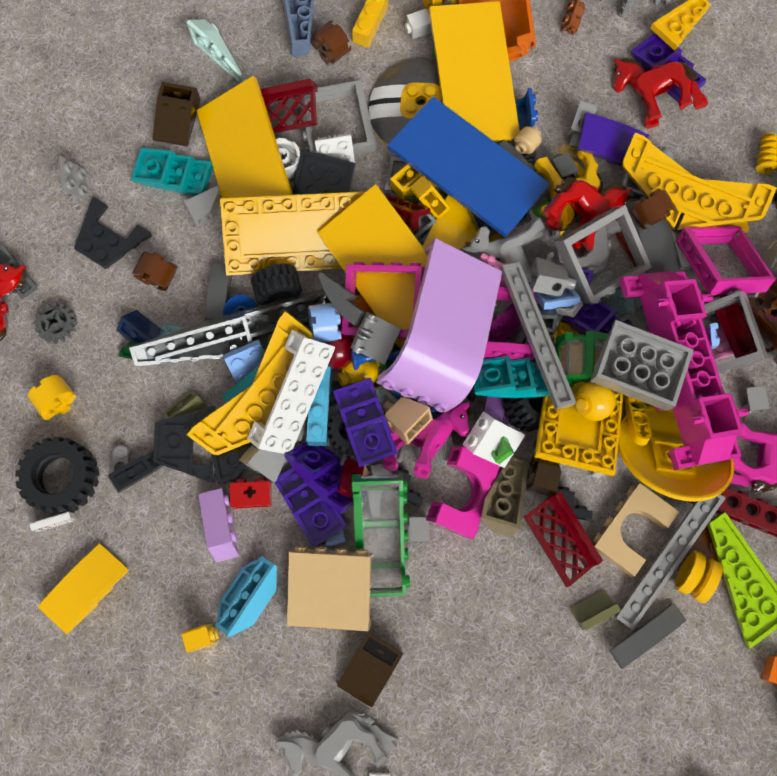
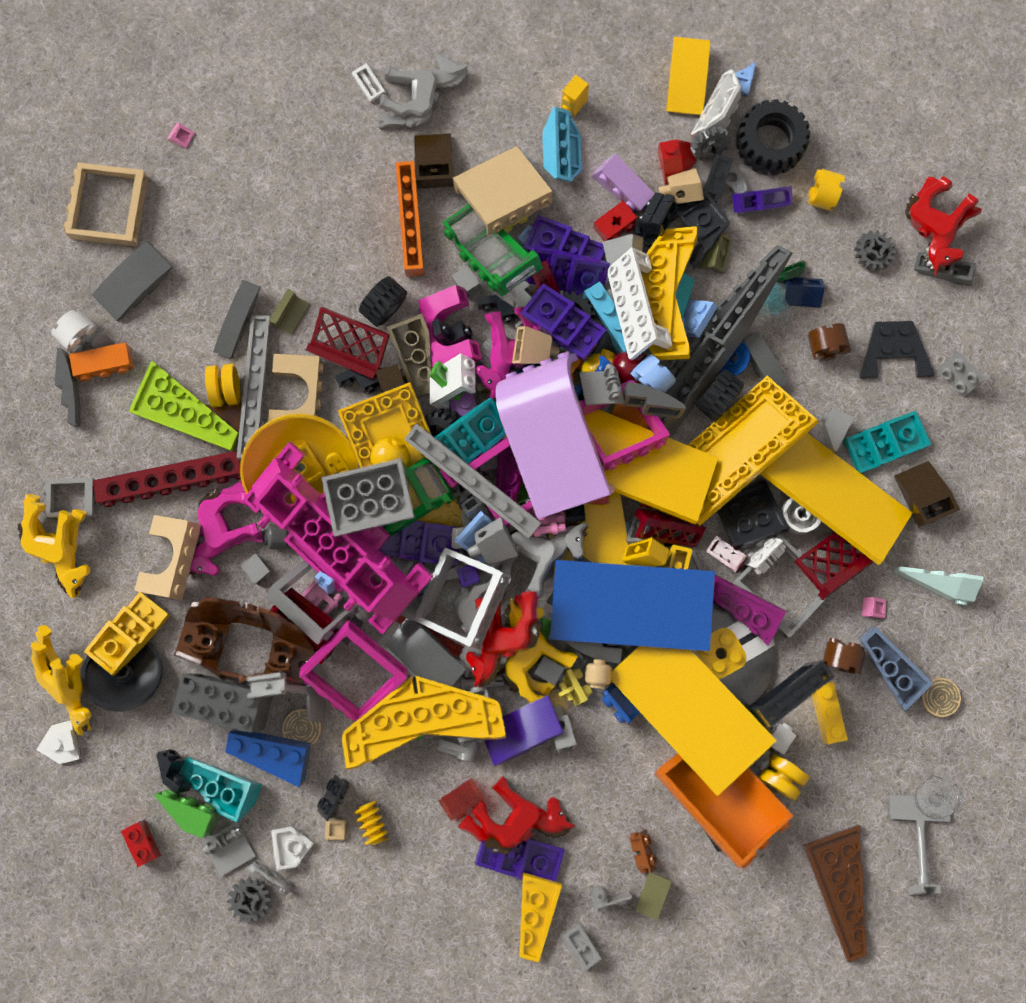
camera: 145 degrees right, 5 degrees up
(38, 551) = (745, 78): none -> light blue tile
(52, 521) = (754, 99): white tile -> none
(78, 538) = (721, 104): none -> white wedge
(111, 428) = (762, 199): none -> dark purple slope
(114, 506) = (710, 142): none -> dark grey gear
(155, 515) = (675, 157): none -> red slope
(169, 482) = (684, 187): none -> tan torso
(210, 471) = (658, 214): none -> black brick
(280, 67) = (874, 607): none -> bright pink slope
(363, 172) = (726, 554): none -> plate
(375, 114) = (753, 611): none -> magenta wing
(394, 18) = (791, 692): none -> black window
(430, 623) = (409, 219): none -> orange brick
(462, 488) = (453, 334): none -> black slope
(507, 556) = (382, 301): none -> black tyre
(550, 147) = (572, 688): none -> light yellow hips
(654, 208) = (443, 671): reddish brown brick -> none
(688, 128) = (461, 799): none -> clear red brick
(727, 741) = (132, 280): none -> dark grey slope

